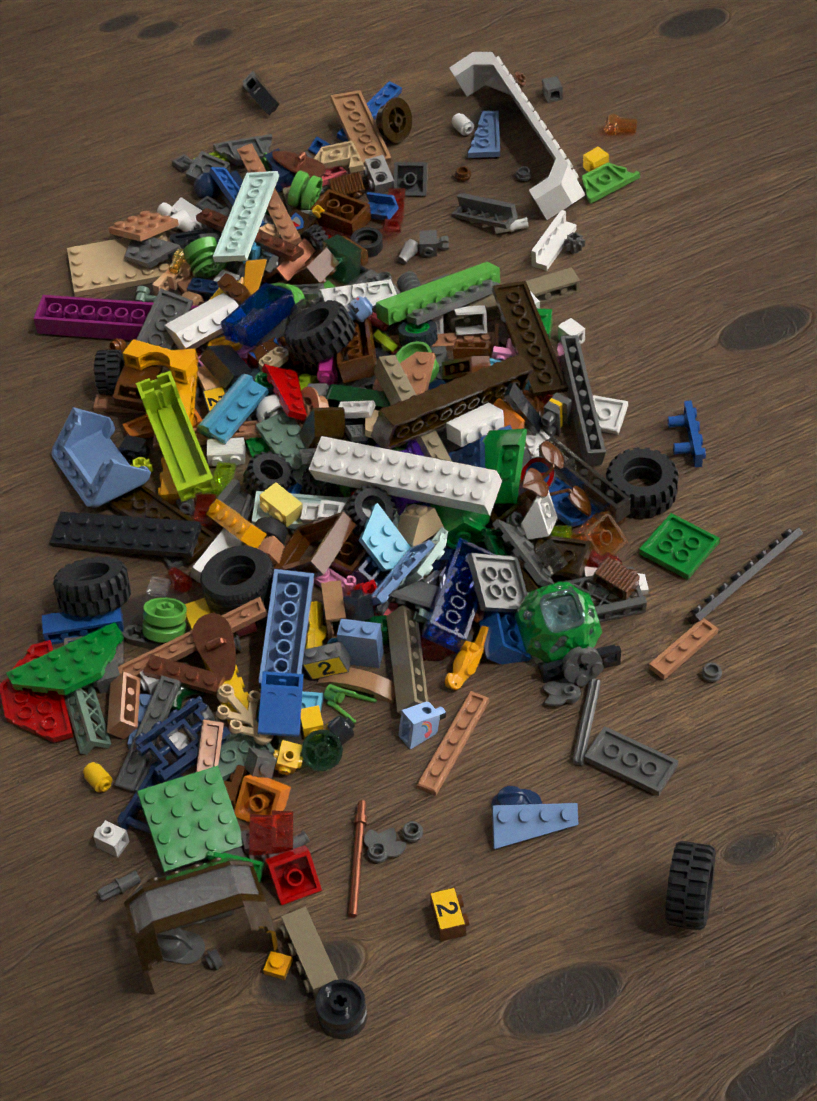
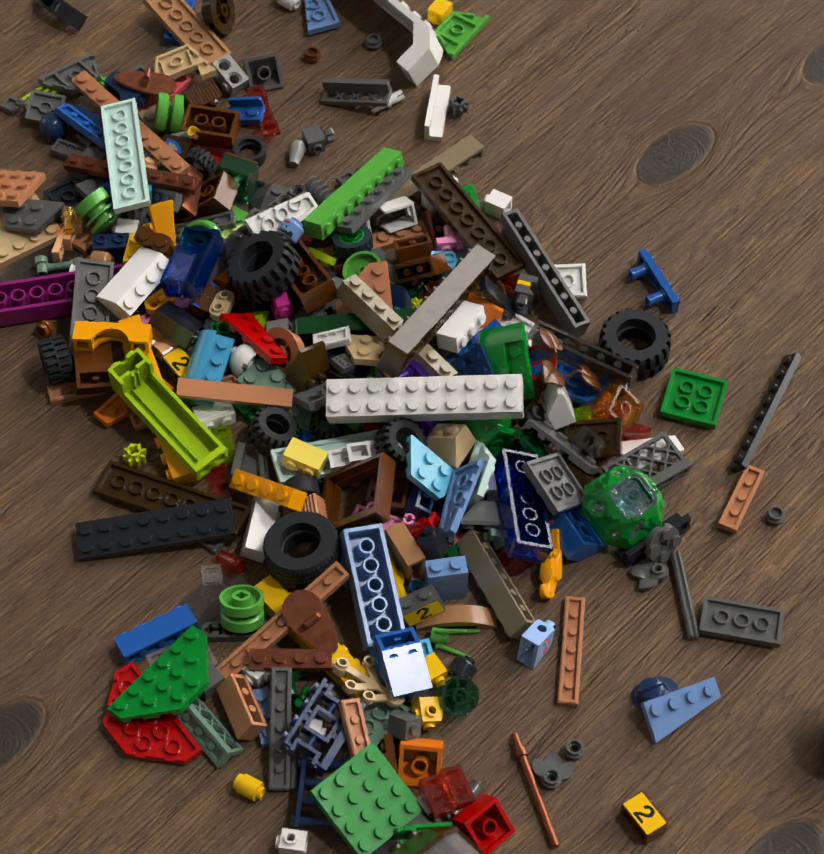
camera: 25 degrees left, 5 degrees up
(92, 586) = (154, 594): black tyre -> none
(93, 460) = (84, 461): medium blue windscreen -> none
(134, 447) = (118, 436): black brick -> none
(184, 212) = (43, 162): white panel -> none
(190, 506) = (205, 486): dark grey plate -> none
(245, 434) = (234, 393): none -> nougat tile
(317, 144) = (148, 55): blue slope -> none
(616, 578) = (657, 447): reddish brown brick -> none

